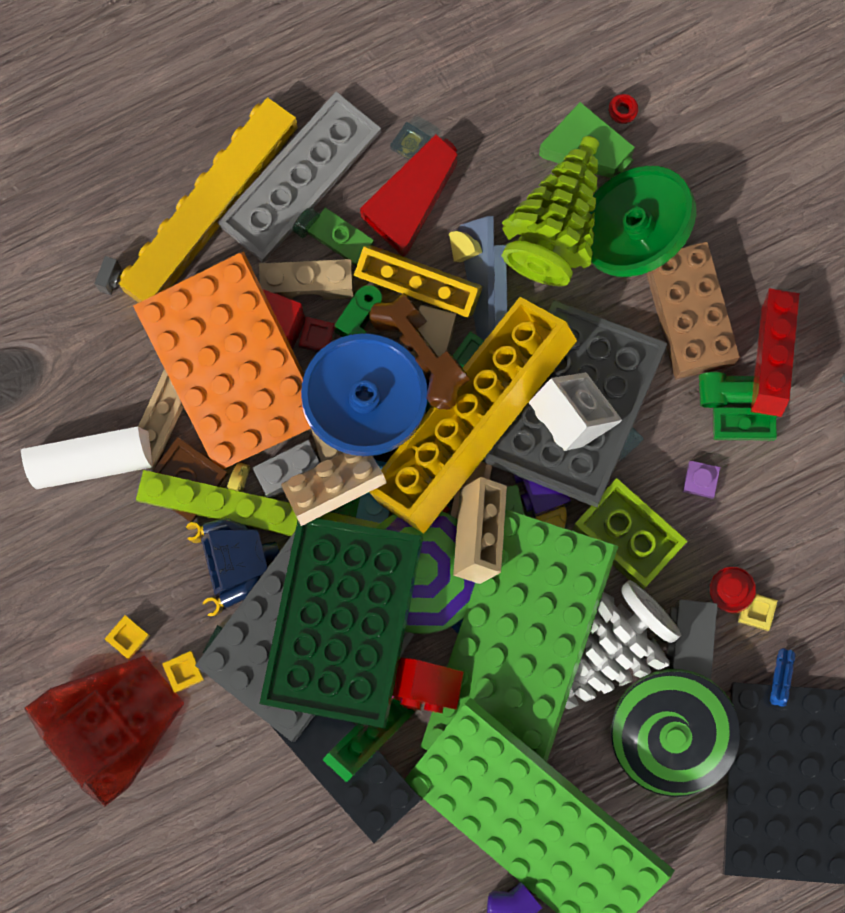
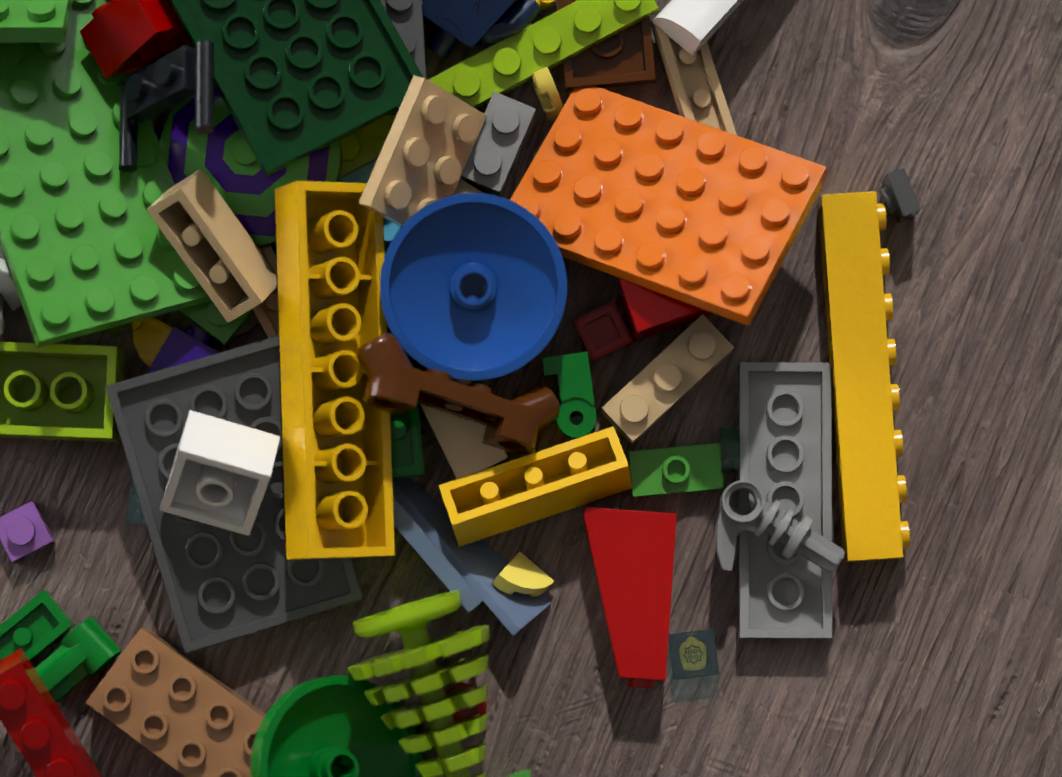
camera: 140 degrees right, 5 degrees up
(317, 168) = (780, 526): none -> light grey piece
(435, 631) = (162, 86): none -> black plate

